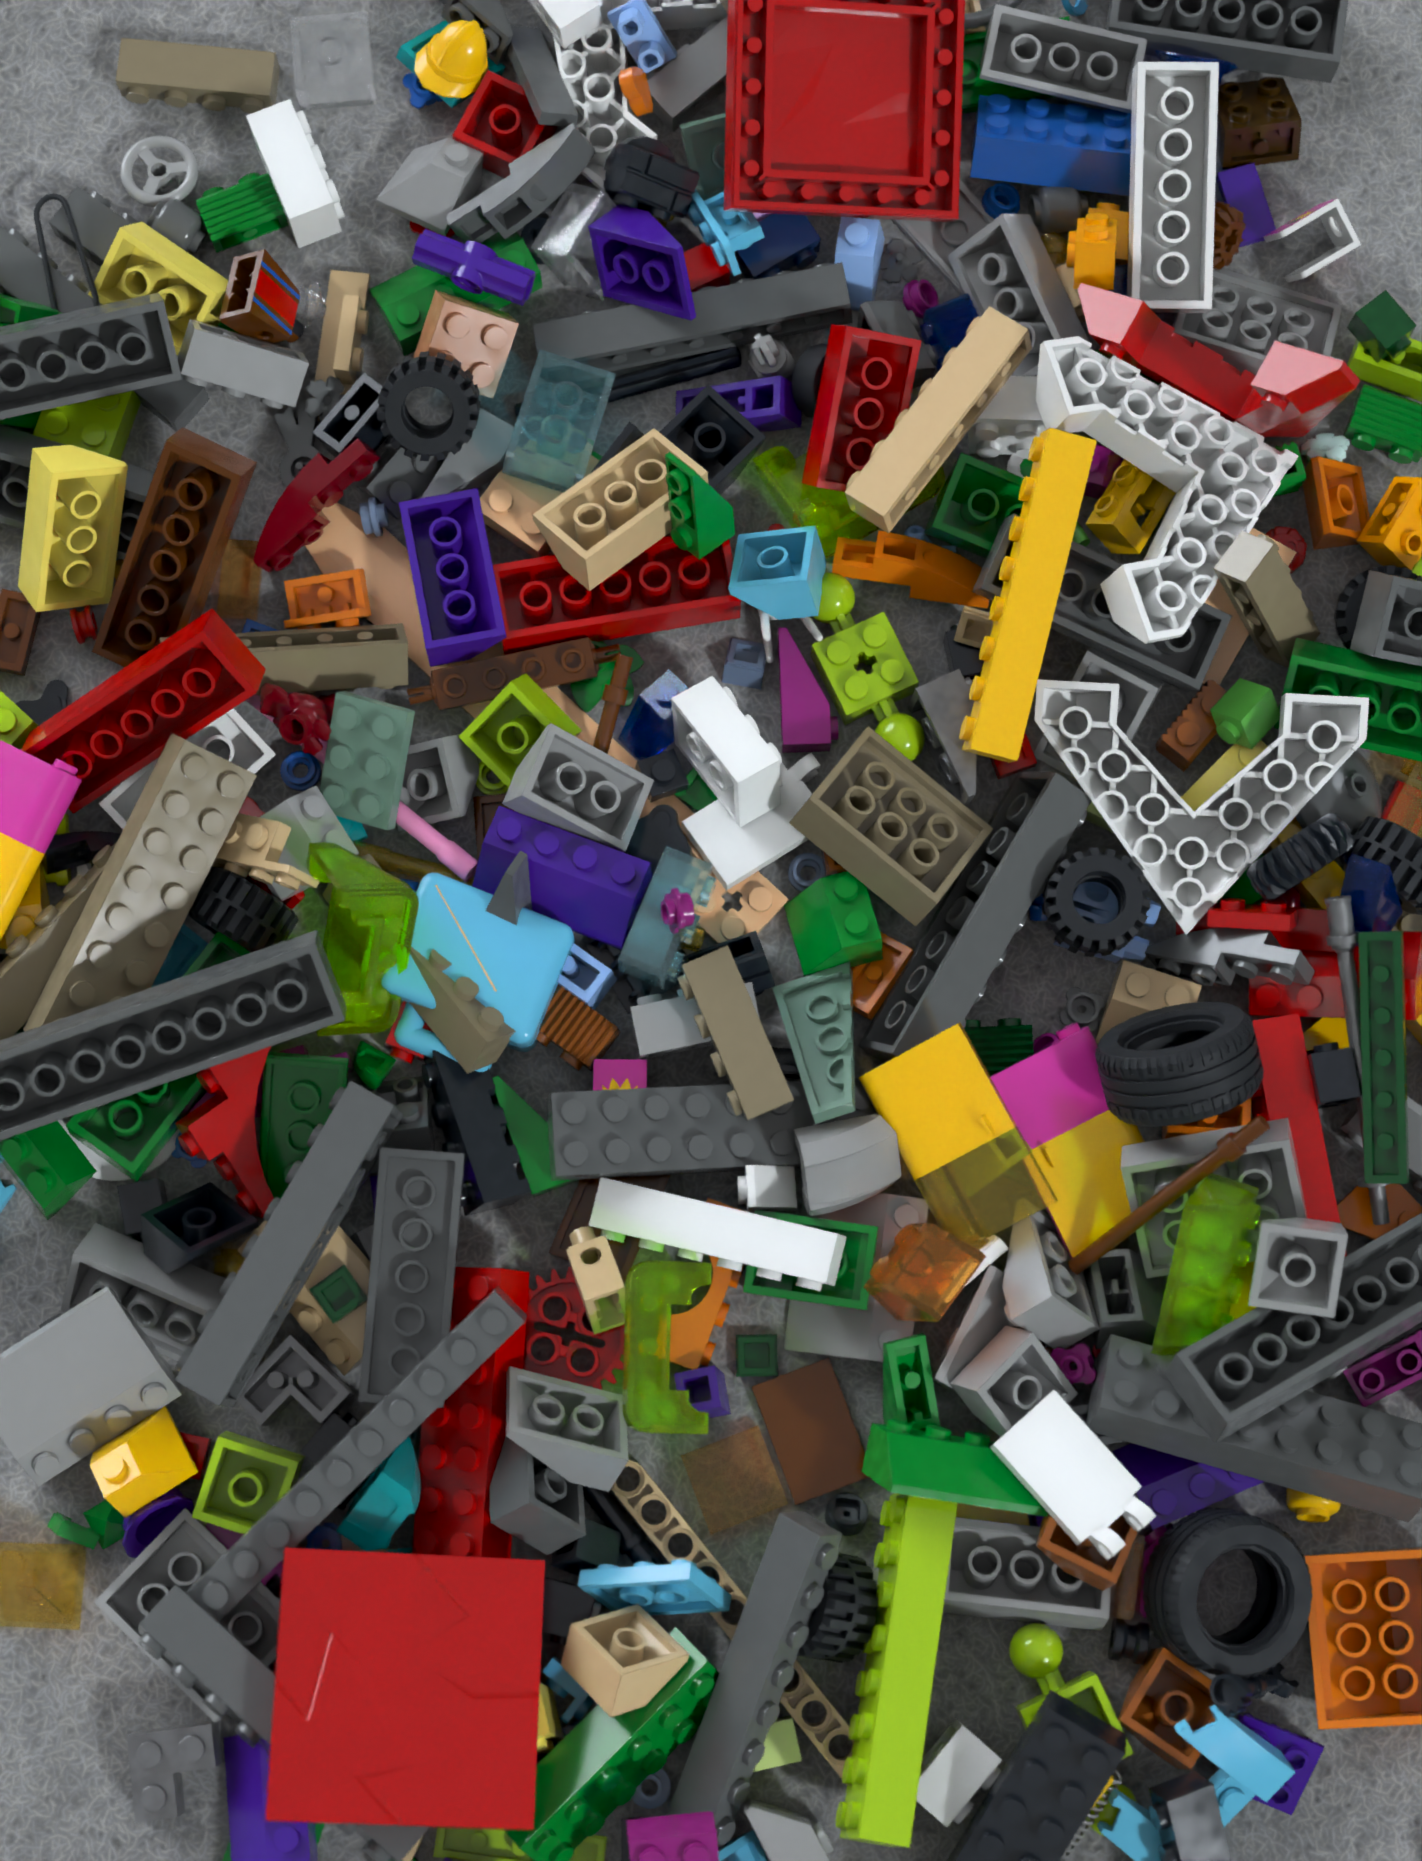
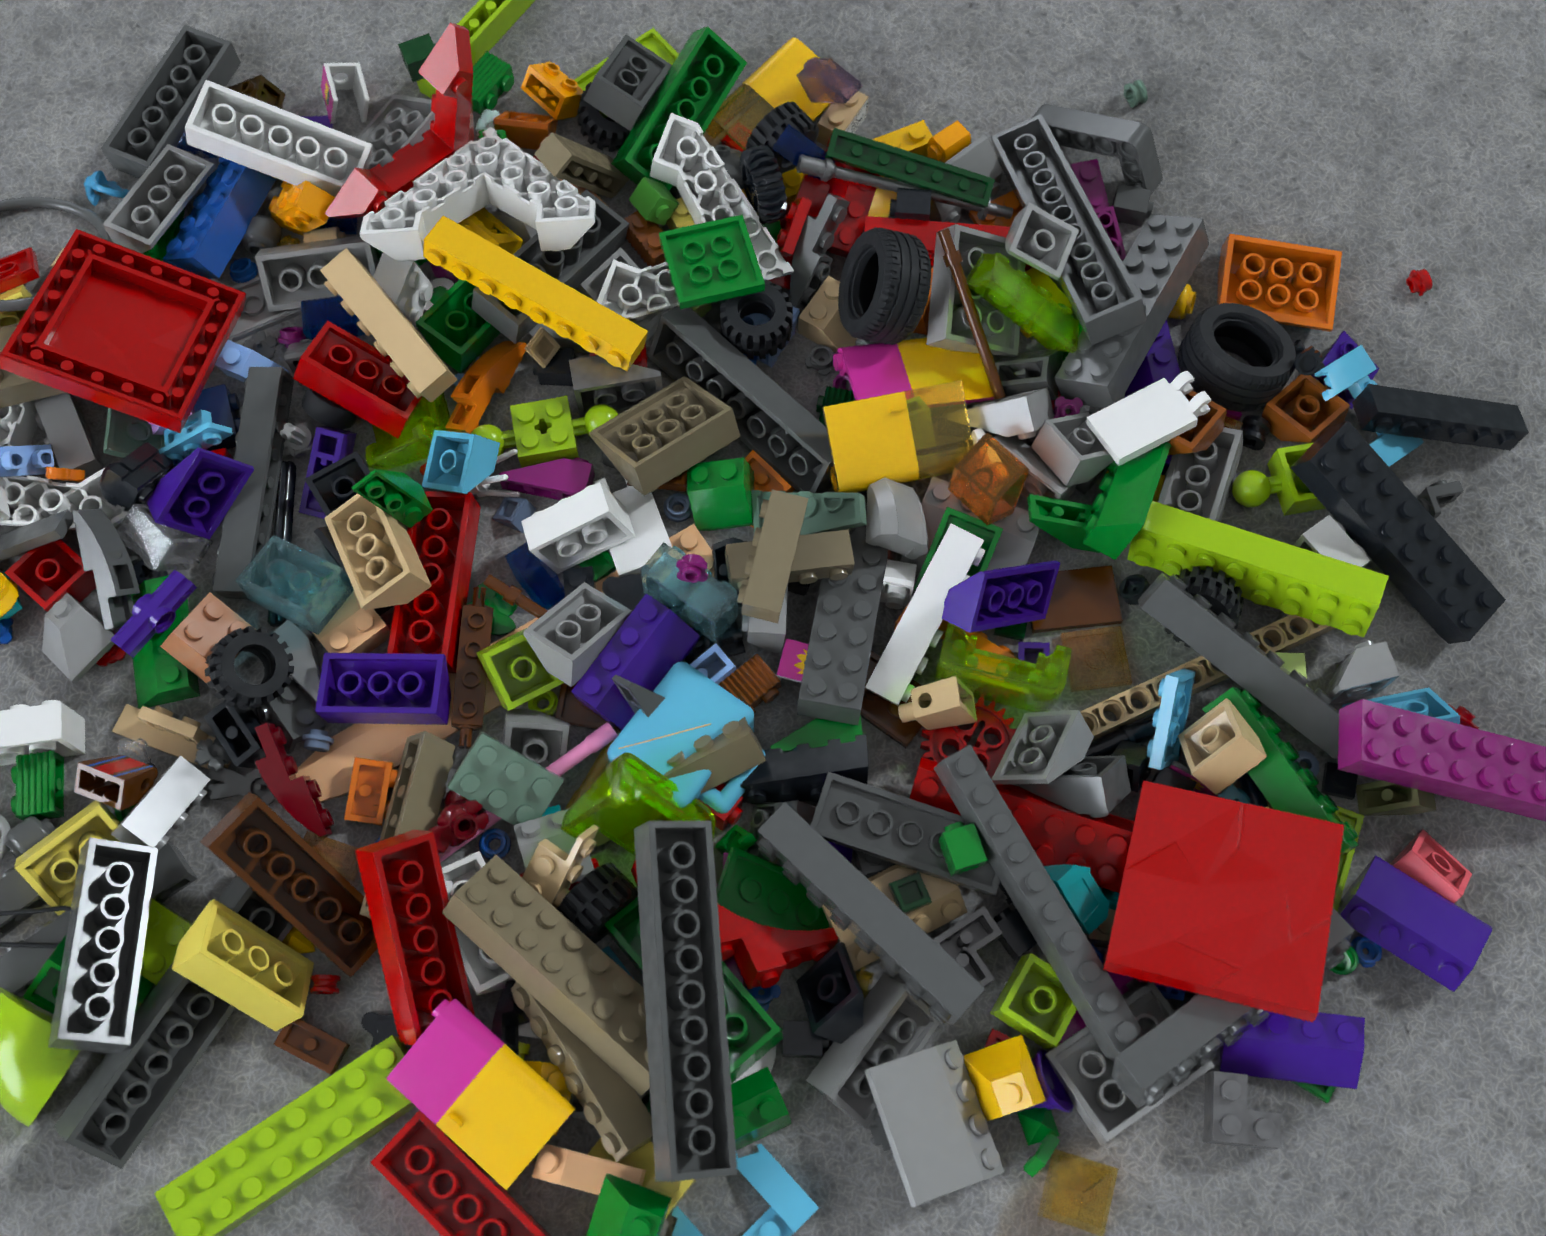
camera: 75 degrees left, 10 degrees down
(399, 1343) = (962, 848): none -> green brick
(721, 1009) = (773, 557): none -> dark tan brick
(756, 1328) = (1001, 597): none -> dark purple slope
(1149, 817) = (711, 261): none -> green plate

